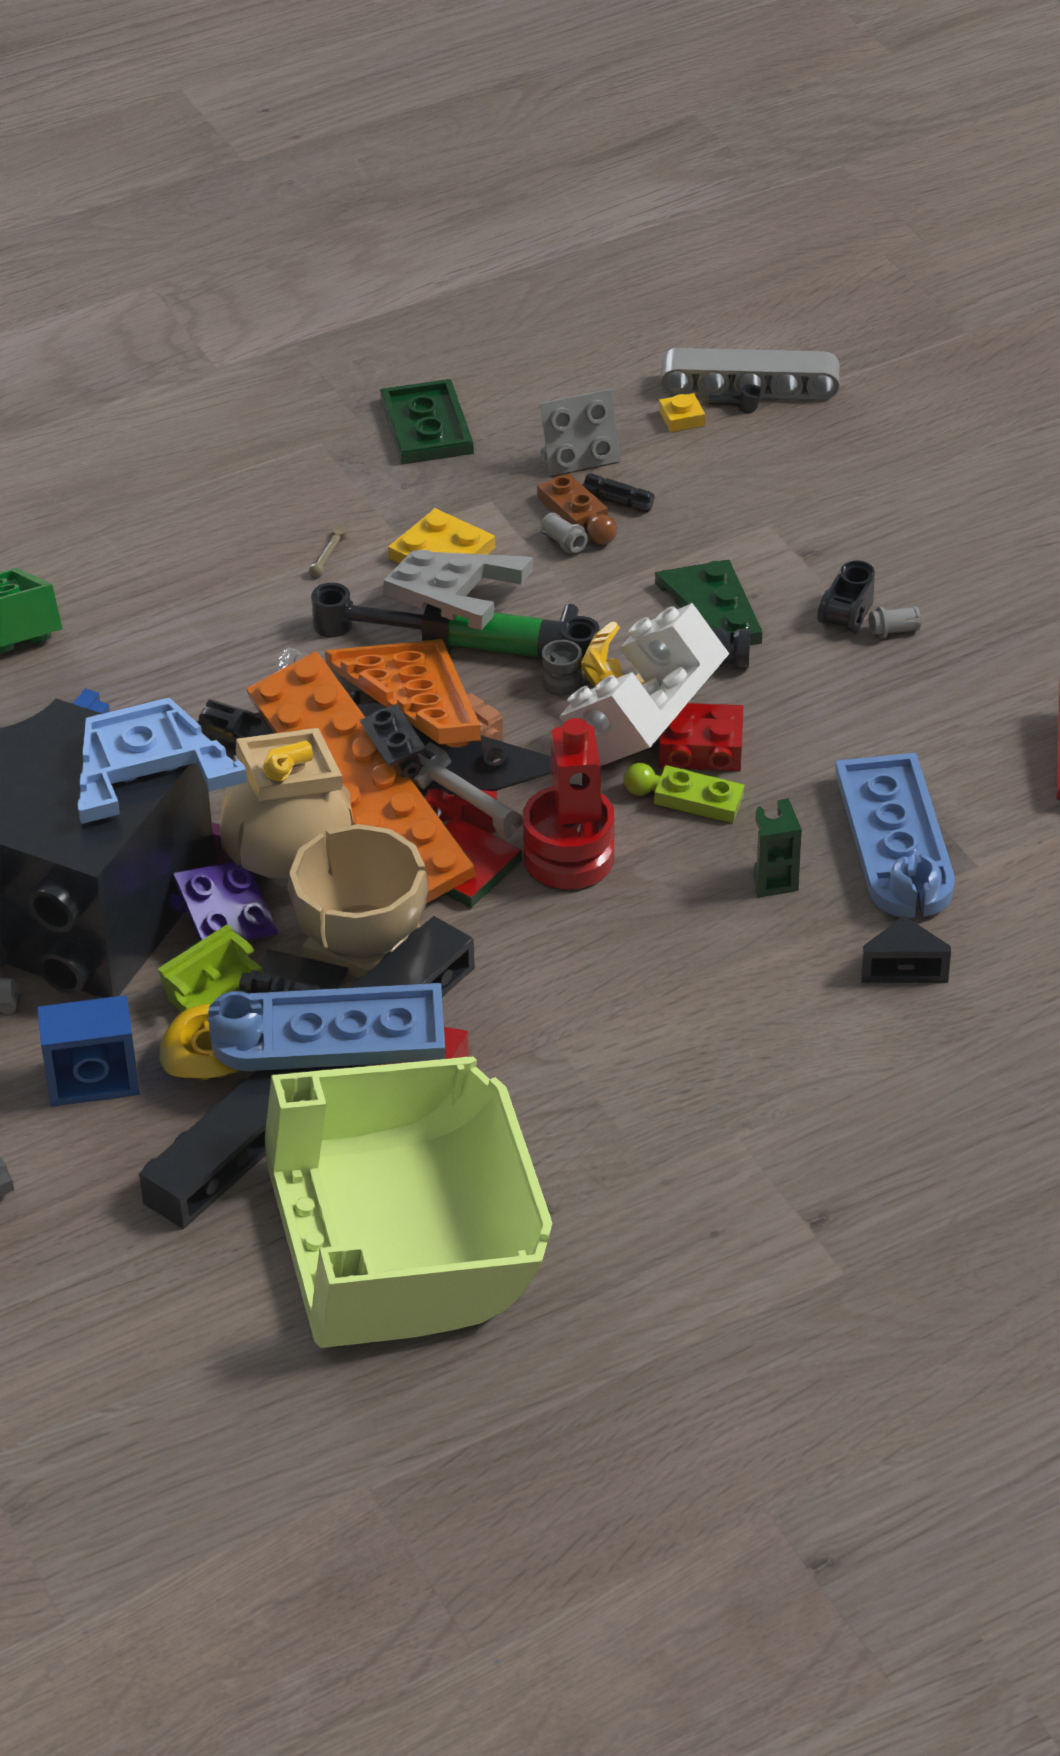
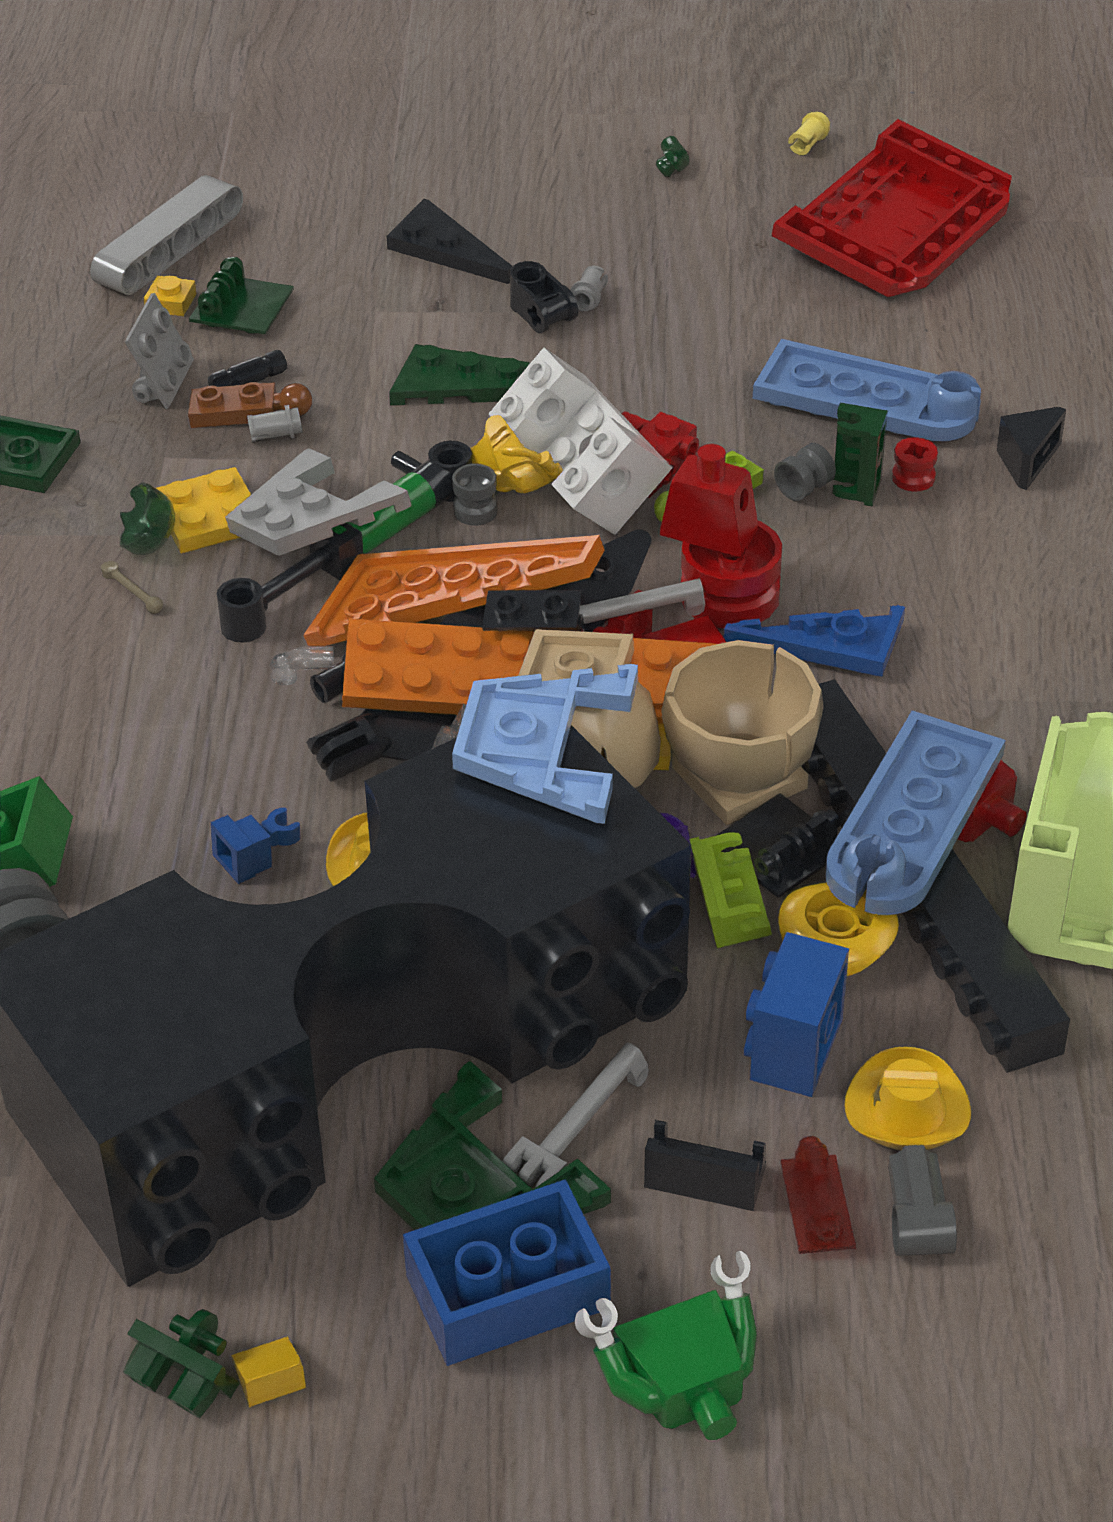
camera: 60 degrees left, 0 degrees up
(66, 1154) = (907, 1100): none -> yellow hat
(282, 759) = (589, 655): yellow arm -> none
(387, 519) = (148, 522): none -> clear green hair
(549, 931) = (830, 639): none -> blue wing
(703, 449) = (239, 301): none -> dark green hinge
(740, 834) = (811, 468): none -> dark grey wheel
(746, 401) = (195, 255): black hand -> none
(818, 896) = (914, 464): none -> red wheel
(889, 515) = (439, 239): none -> black wing

